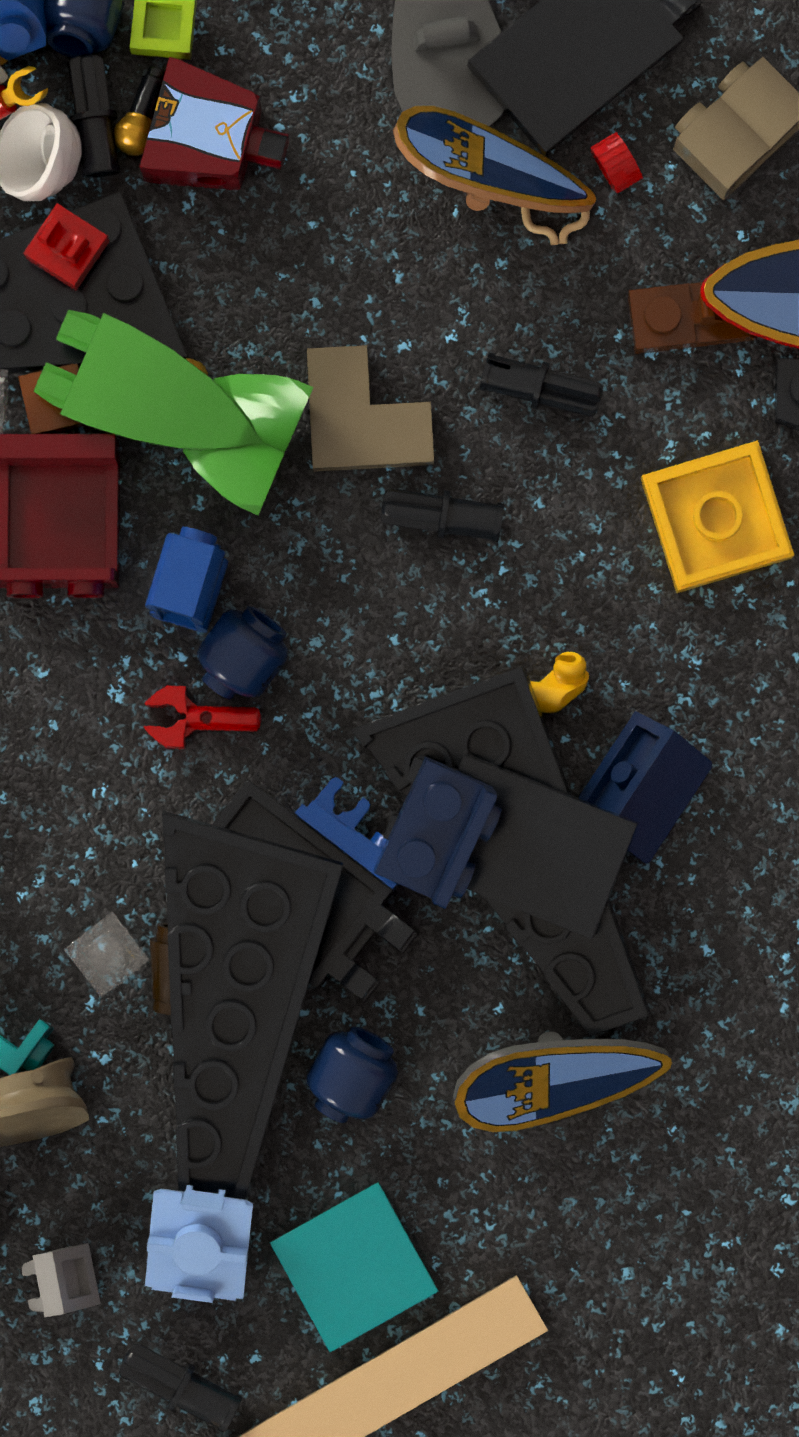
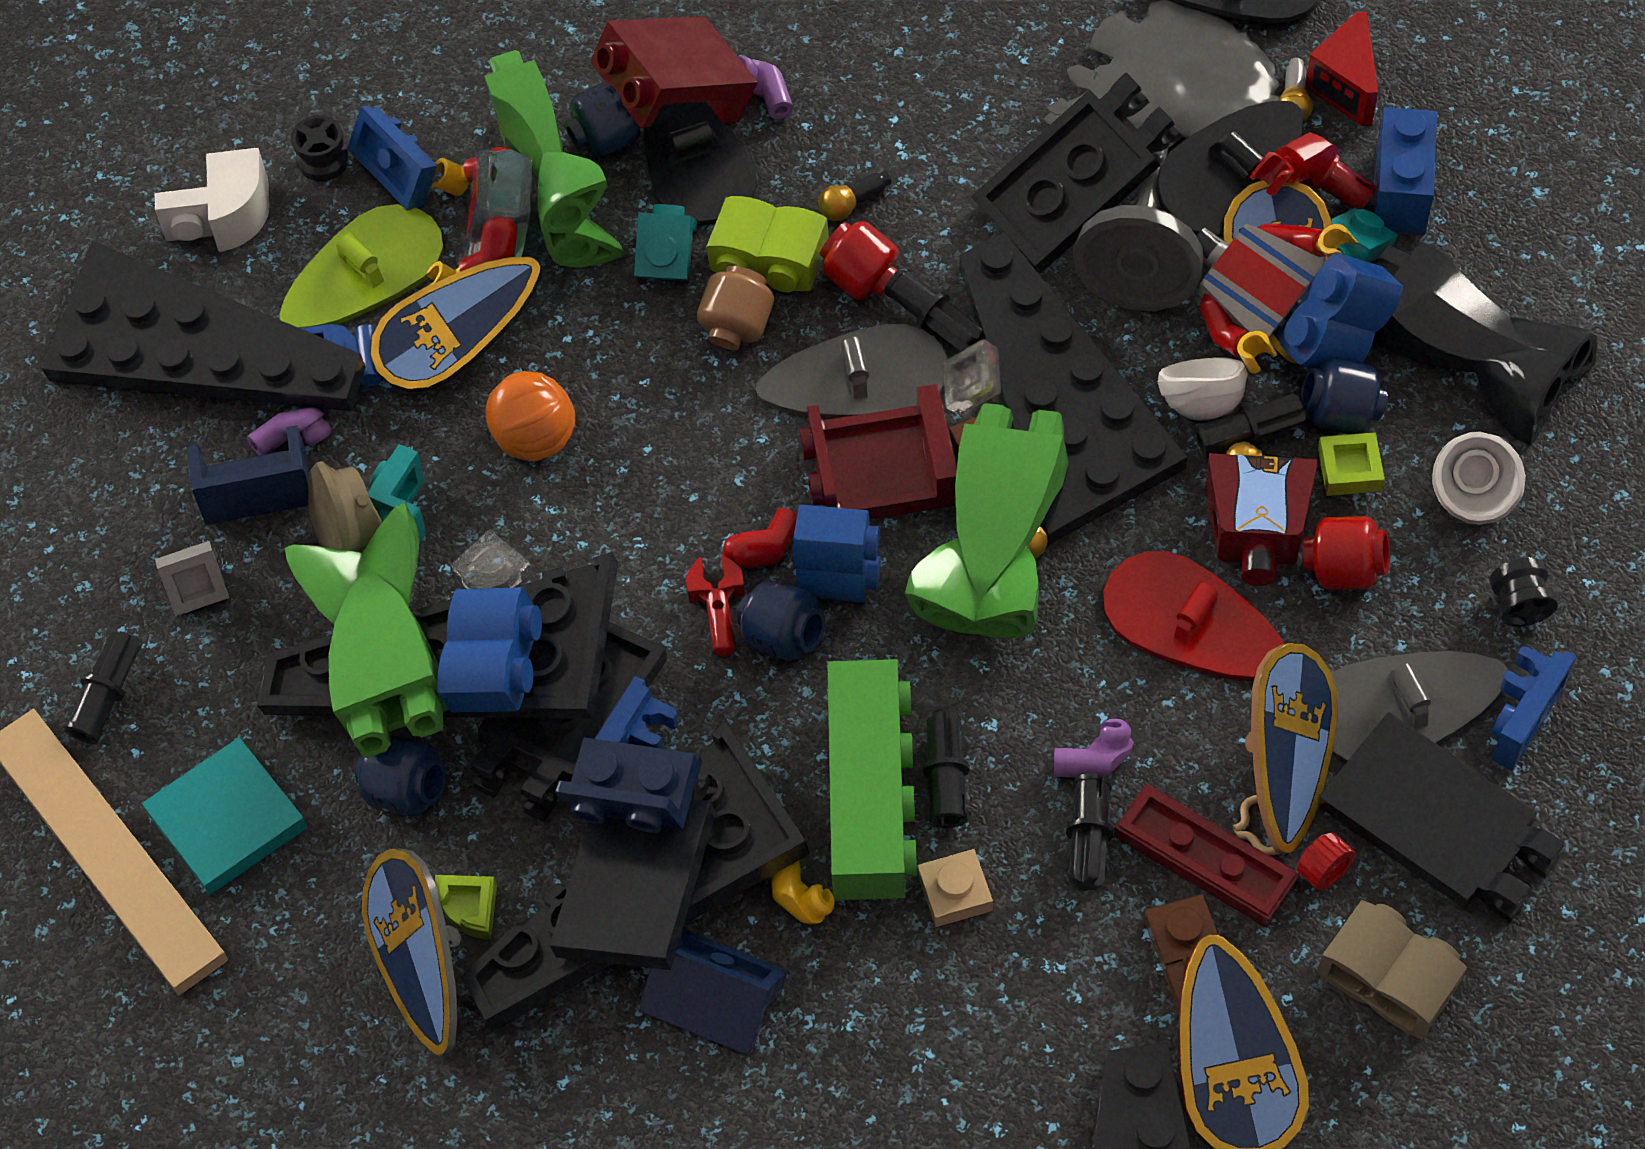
camera: 80 degrees right, 25 degrees down
(66, 246) = (1122, 413): red tile -> none
(140, 654) = (763, 547): none -> red arm
(198, 1244) = (230, 671): light blue piece -> none
(225, 1078) = (377, 653): none -> bright green hips
(260, 957) = (488, 650): none -> blue brick
(274, 54) = (1347, 553): none -> red head
(306, 232) = (1186, 616): none -> red shield
(349, 430) = (1015, 677): dark tan tile -> none
(450, 593) = (866, 780): none -> bright green brick
(455, 357) = (1101, 756): none -> medium lavender arm
(500, 1022) = (468, 902): none -> lime tile
(573, 530) = (955, 888): none -> tan plate
(581, 277) = (1206, 855): none -> dark red tile
(717, 516) = (996, 1017): yellow tile -> none

